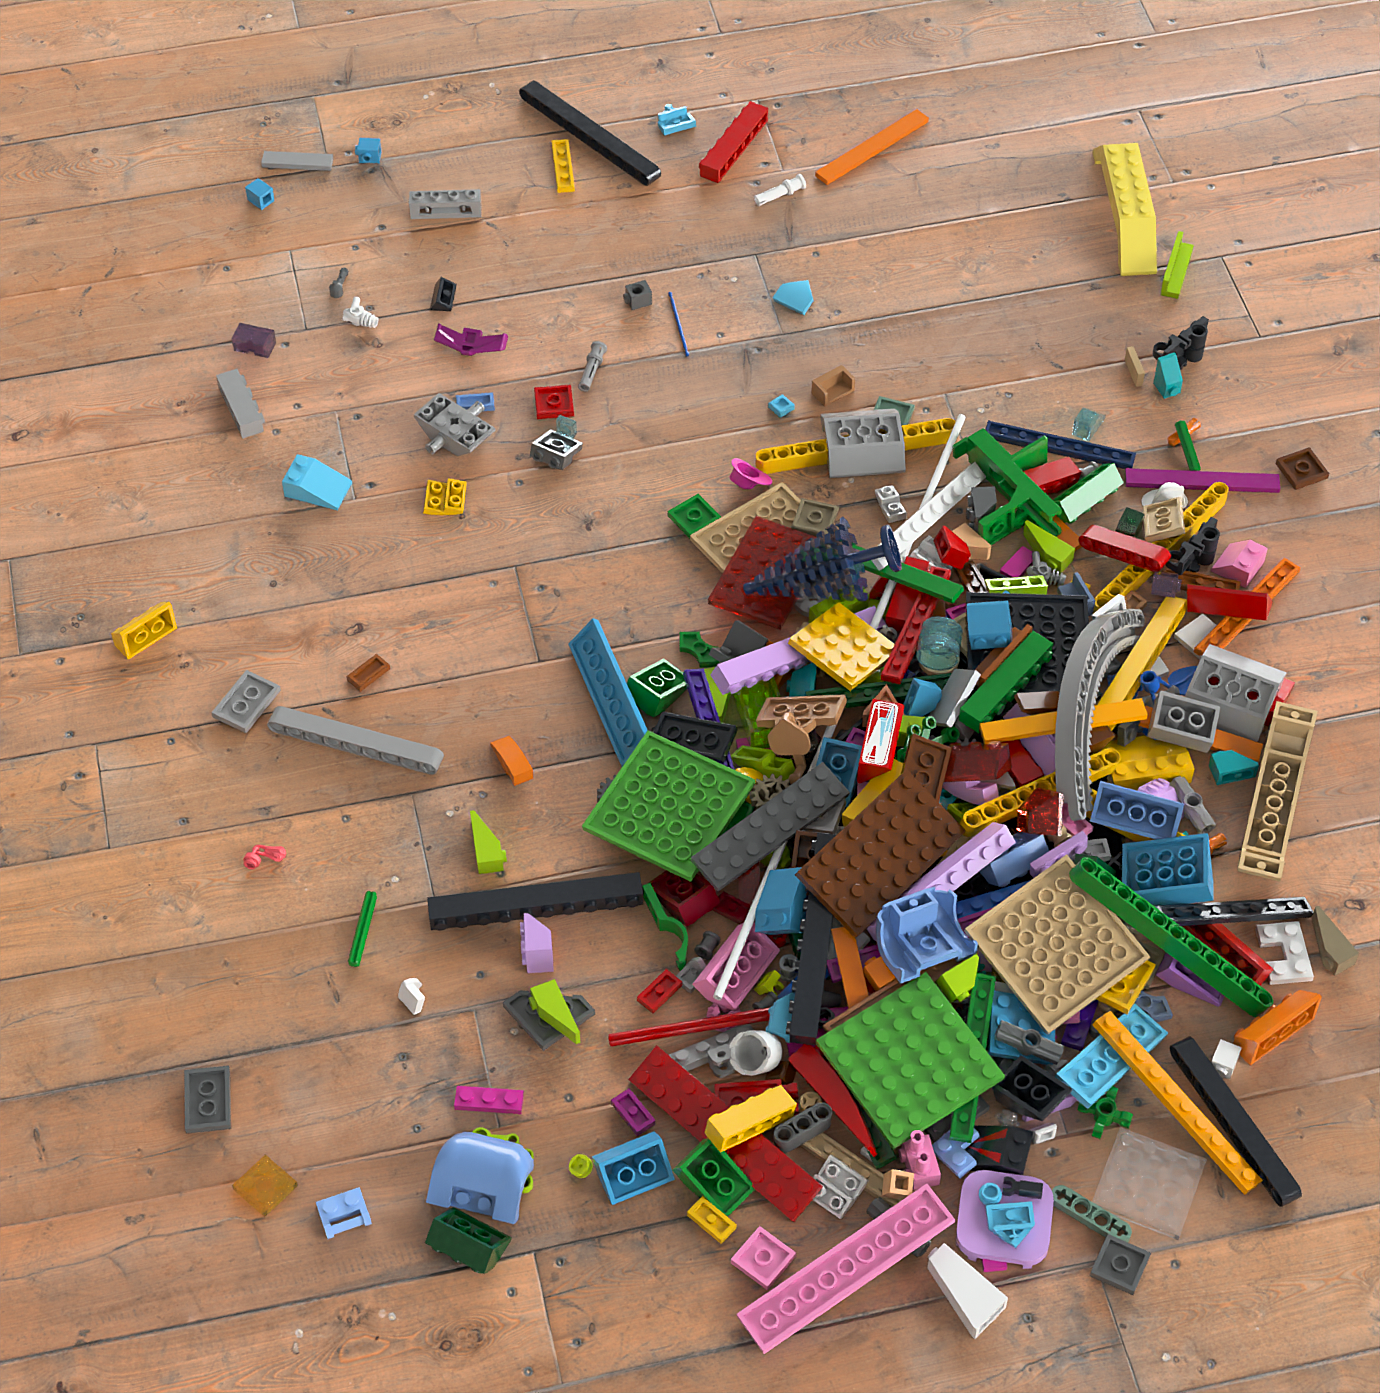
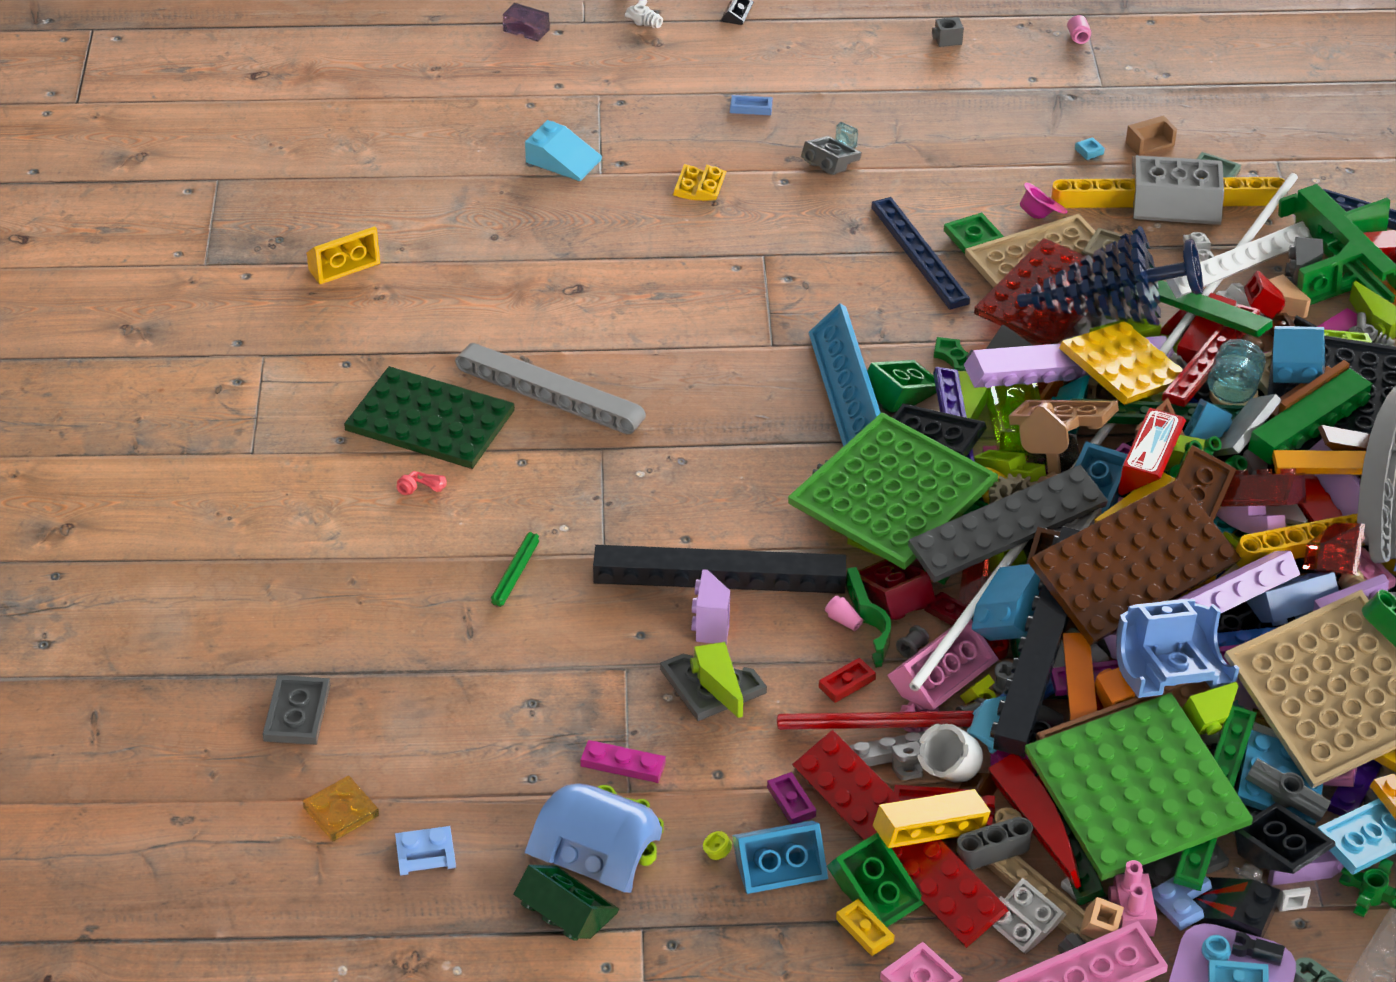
camera: 10 degrees right, 10 degrees down
(240, 403) = (498, 73): light grey brick -> none
(246, 701) = (437, 336): light grey plate -> none
(256, 785) = (430, 417): none -> dark green plate
(368, 672) = (579, 329): dark orange tile -> none
(411, 995) = (556, 640): white tile -> none
(452, 425) = (721, 118): light grey slope -> none
(470, 340) = (757, 49): magenta plate -> none
(487, 847) = (675, 509): lime slope -> none
(512, 760) = (723, 431): orange slope -> none
(553, 401) = (836, 110): red plate -> none
(594, 360) = (886, 86): light grey pin -> none
(645, 926) = (843, 613): none -> bright pink cone
(651, 543) = (920, 253): none -> dark blue tile
(678, 324) = (988, 64): blue piece -> none
(691, 973) = (886, 666): light grey tile -> none
(754, 275) = (1079, 29): none -> bright pink brick
(795, 296) = (1121, 54): medium azure slope -> none

